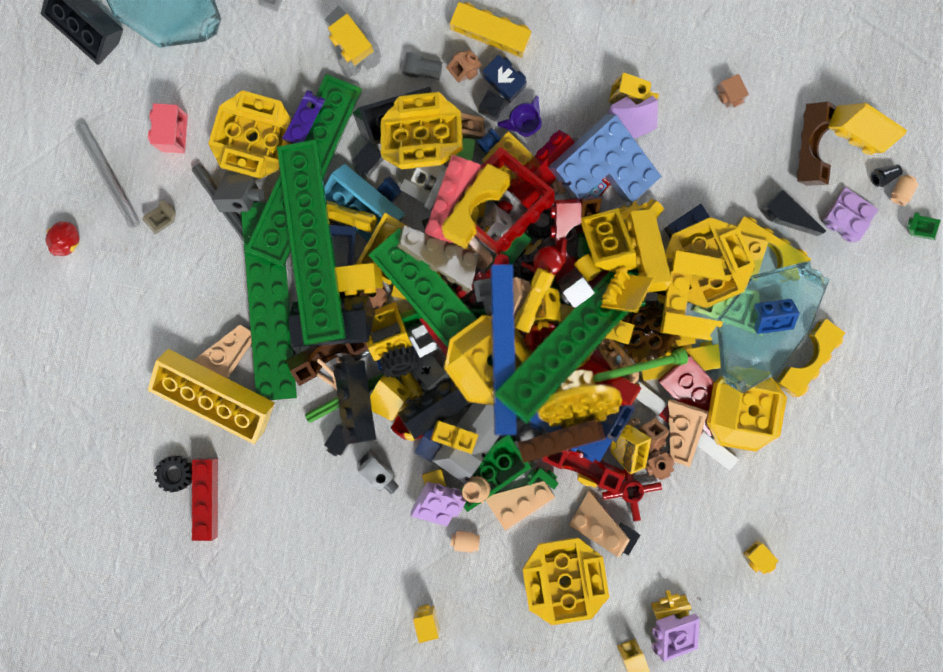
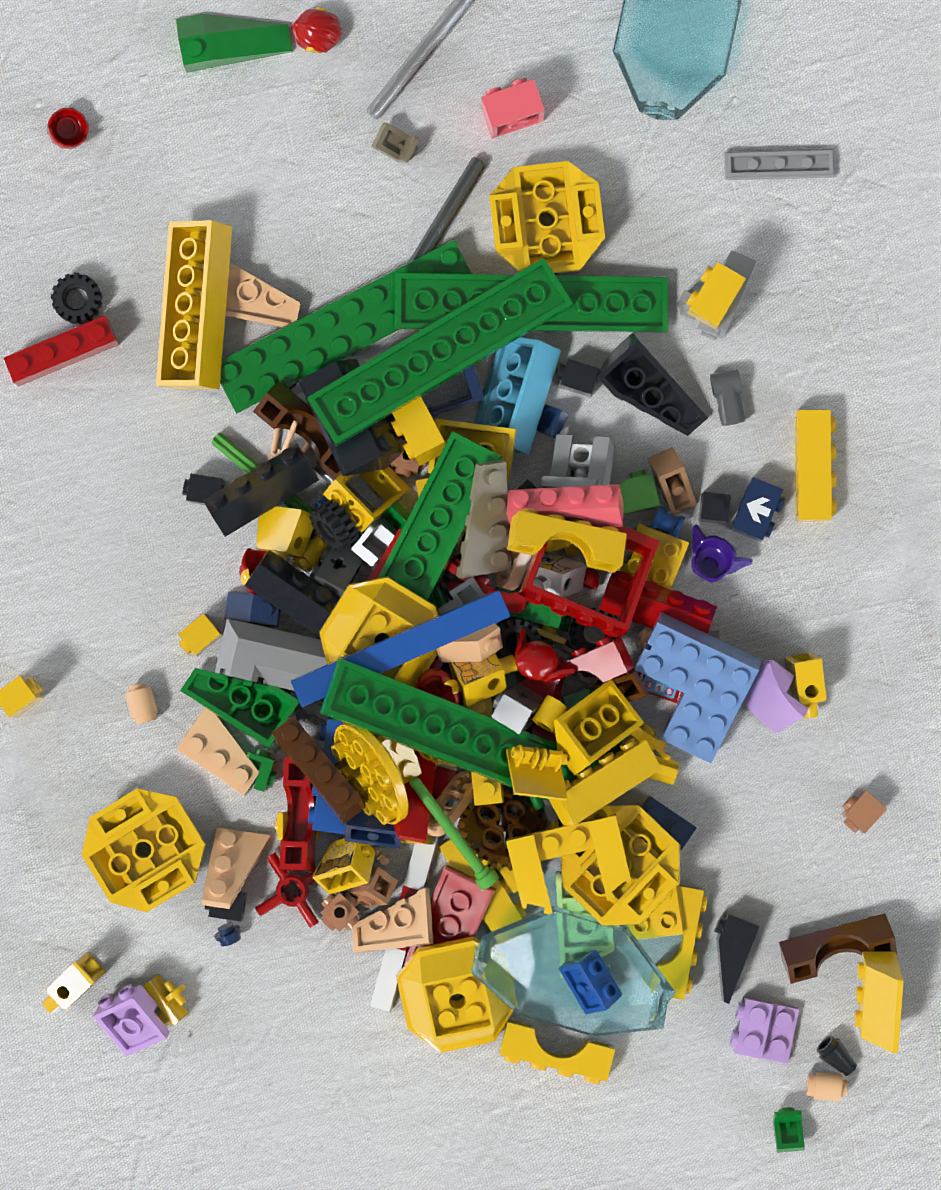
camera: 65 degrees right, 0 degrees up
(43, 304) = (220, 40): none -> green wedge
(56, 433) = (67, 128): none -> red hair
(236, 193) = (465, 229): dark grey torso -> none
(303, 118) = (594, 274): dark purple plate -> none
(358, 219) = (495, 399): yellow axle -> none
(370, 466) = (189, 545): torso -> none
(417, 117) = (654, 419): yellow piece -> none
(438, 504) = (175, 649): lavender plate -> none
(454, 437) = (268, 633): yellow slope -> none
(464, 66) = (750, 451): nougat brick -> none
(476, 489) = (213, 689): light nougat piece -> none
(539, 286) = (499, 661): yellow axle -> none
(644, 546) = (228, 934): none -> dark blue plate
(760, 558) = (273, 1090): yellow brick -> none

